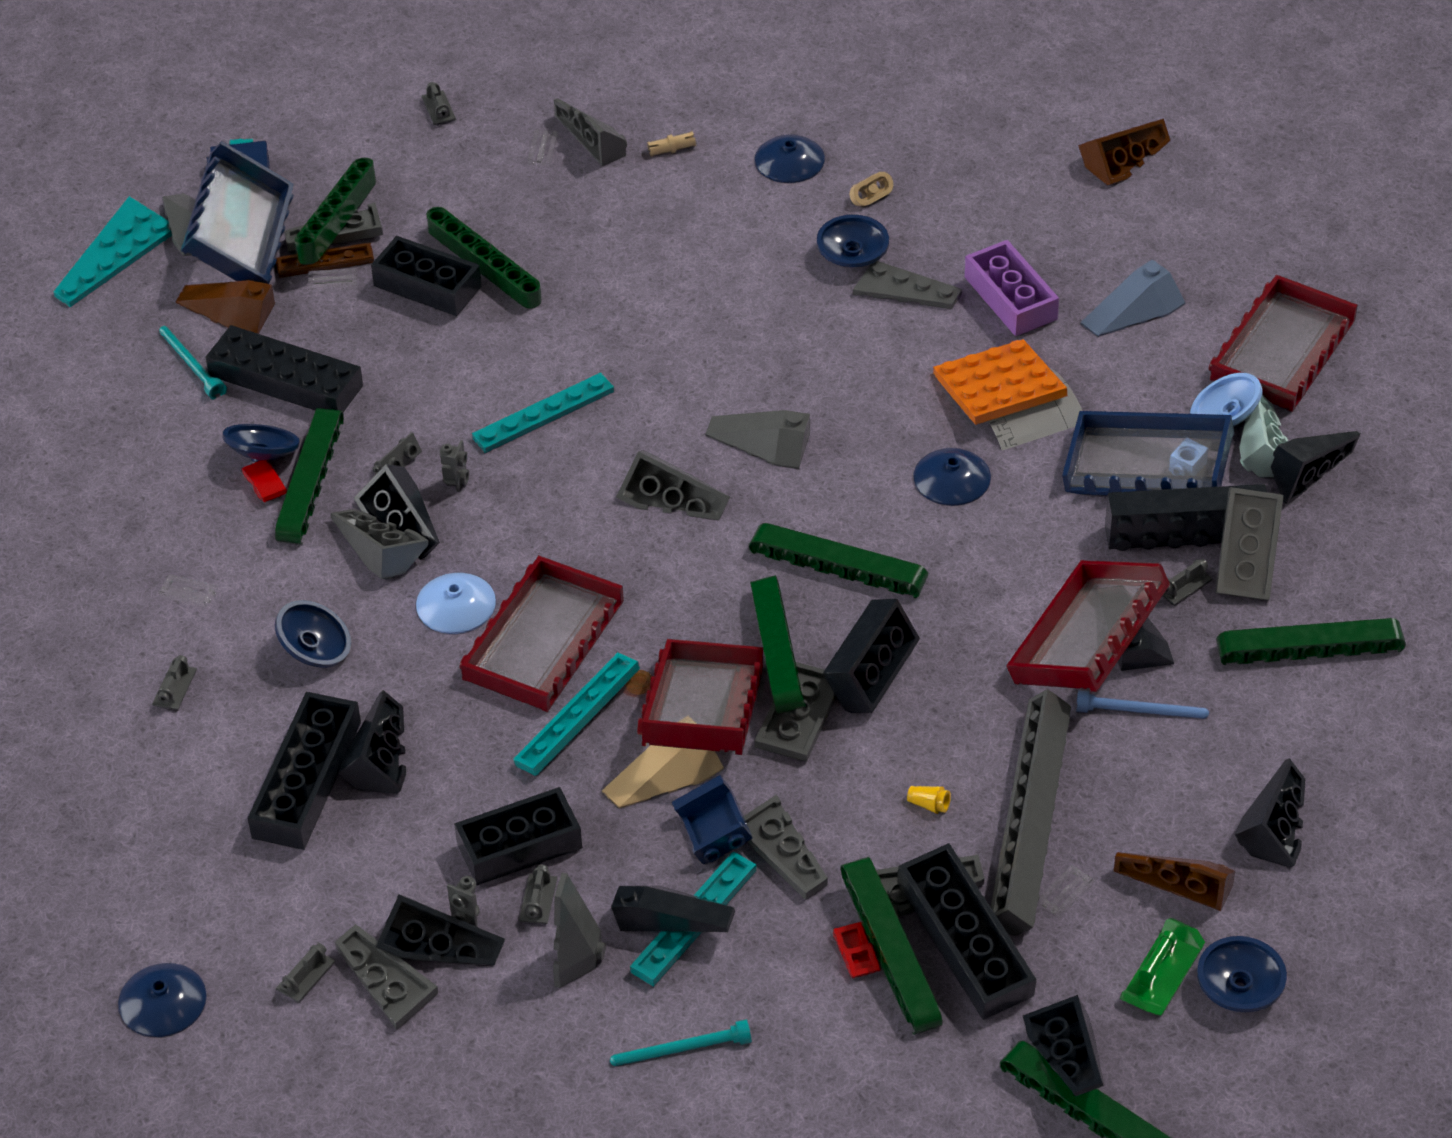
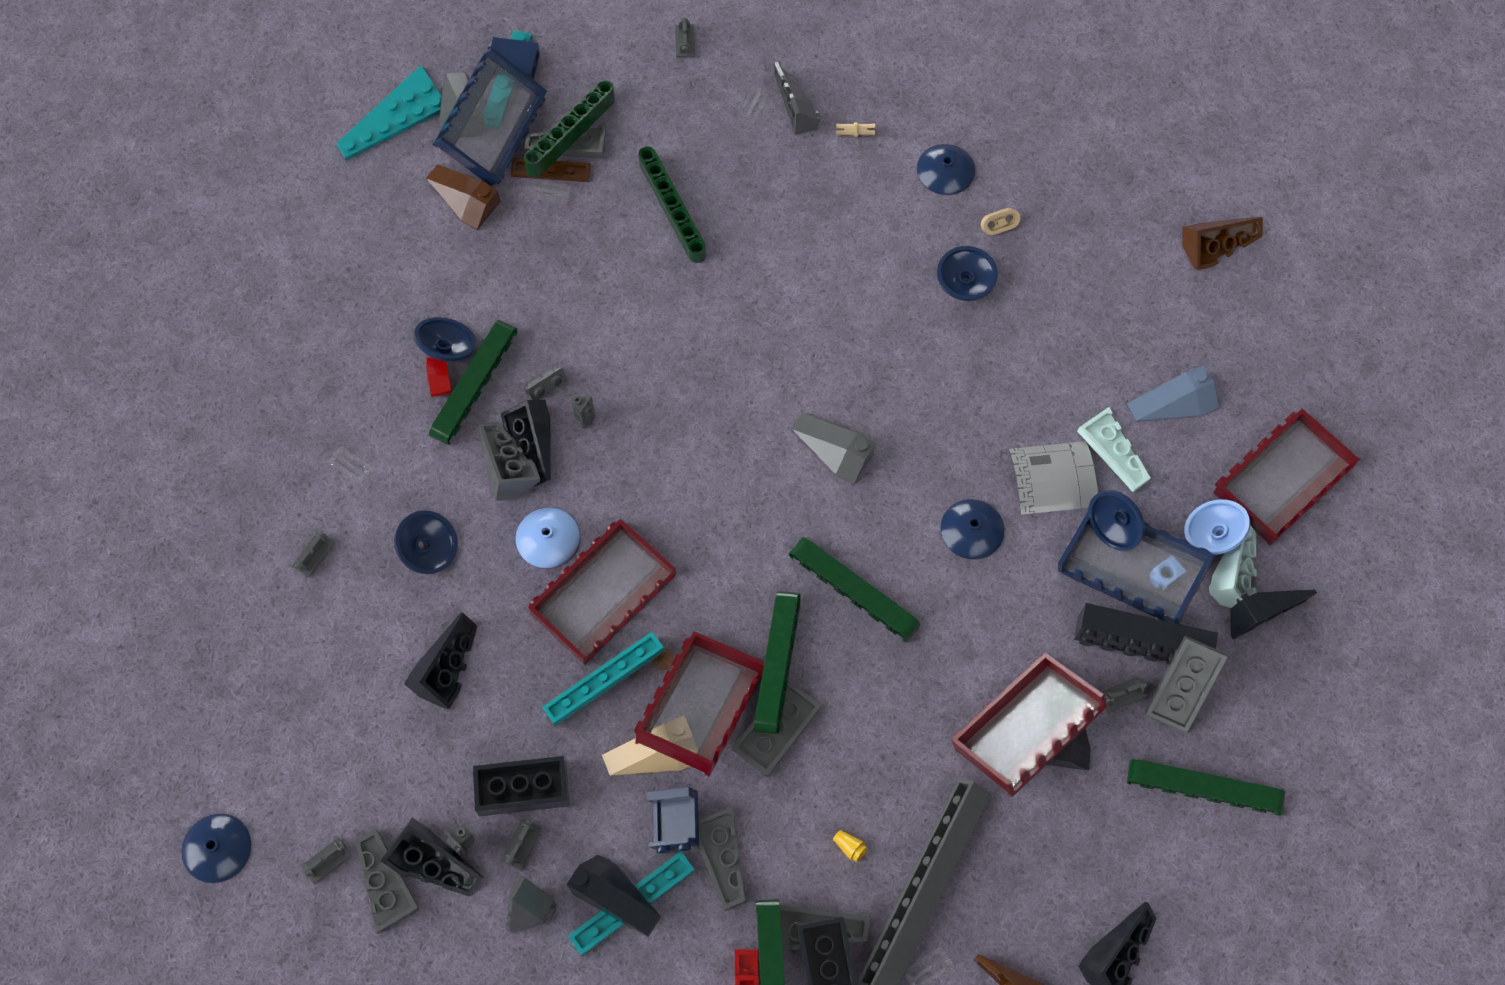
camera: 15 degrees right, 20 degrees up
(211, 385) = (427, 270): teal piece -> none
(283, 370) = (484, 275): black brick -> none
(304, 770) = (380, 671): black brick -> none
(426, 275) = (621, 212): black brick -> none
(542, 412) = (671, 370): teal plate -> none
(663, 485) = (741, 472): dark grey wedge -> none
(871, 656) = (846, 699): black brick -> none
(896, 283) = (990, 322): dark grey wing -> none
(999, 381) = (1040, 449): orange plate -> none
(1011, 287) = (1080, 357): medium lavender brick -> none
(1075, 360) = (1114, 449): none -> light aqua wing
(1088, 701) = (1052, 809): medium blue piece -> none
(1102, 420) = (1116, 520): none -> dark blue dish

